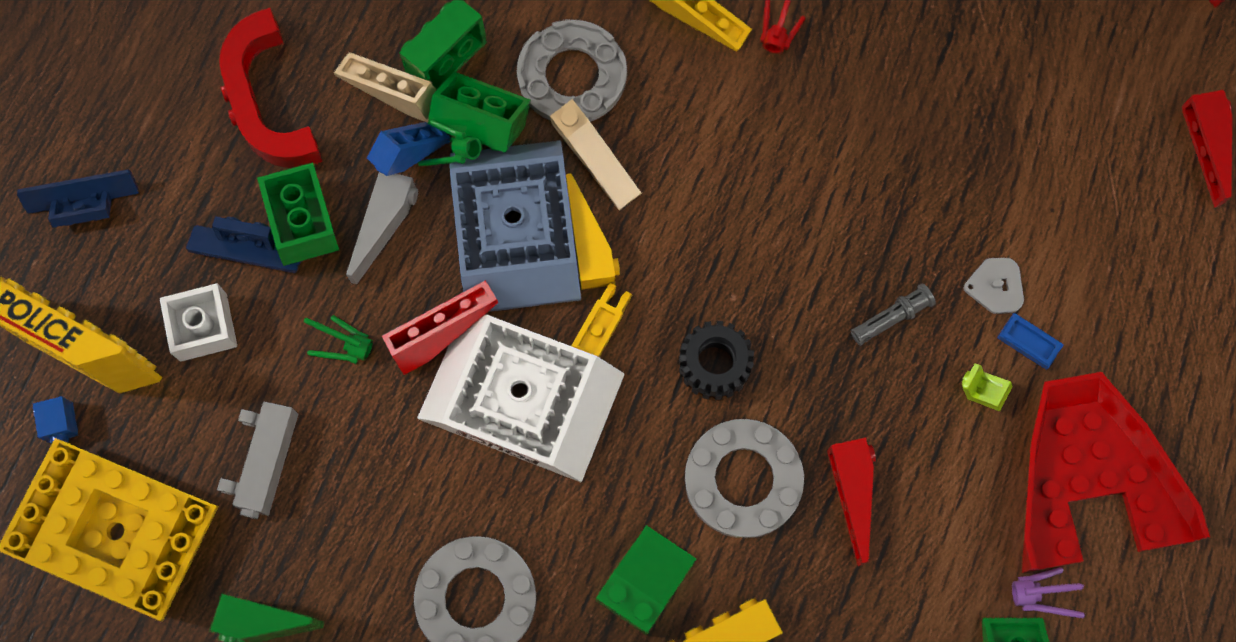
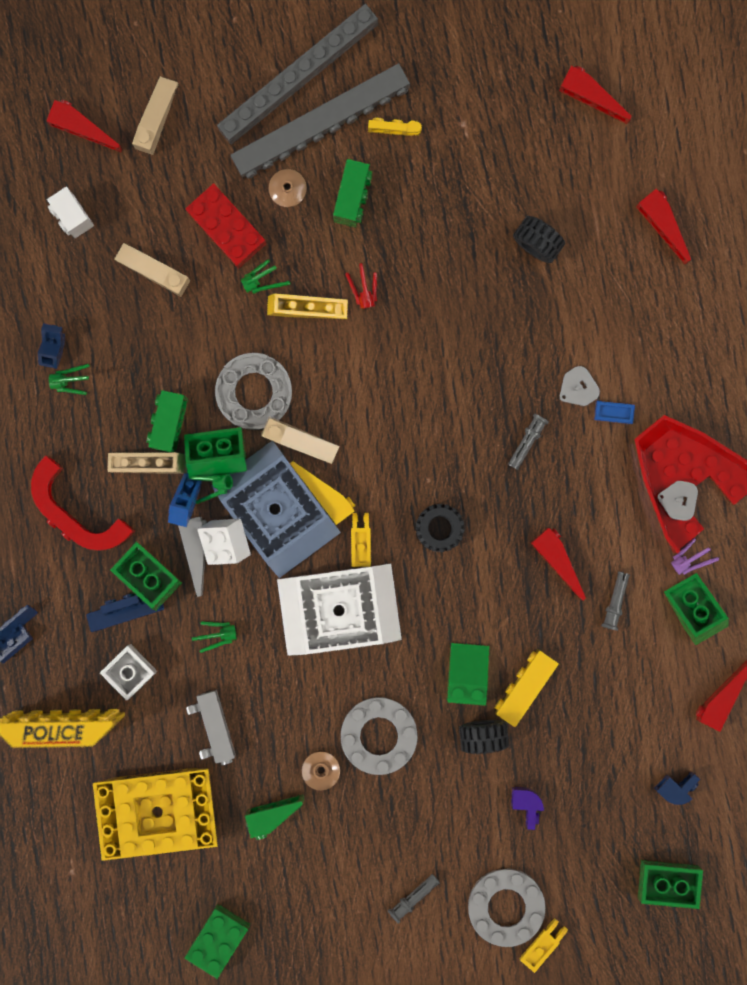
camera: 30 degrees left, 15 degrees up
(55, 419) = (83, 772): blue brick -> none
(352, 595) = (318, 780): none -> medium nougat dish
(423, 221) = (224, 541): none -> white brick
(433, 331) = (270, 598): red slope -> none
(734, 519) = (472, 605): light grey plate -> none
(899, 604) = (613, 611): none -> dark grey pin
(985, 388) = (602, 457): lime bracket -> none
(1039, 71) = (539, 239): none -> black tyre
(1060, 494) = (673, 500): none -> light grey piece

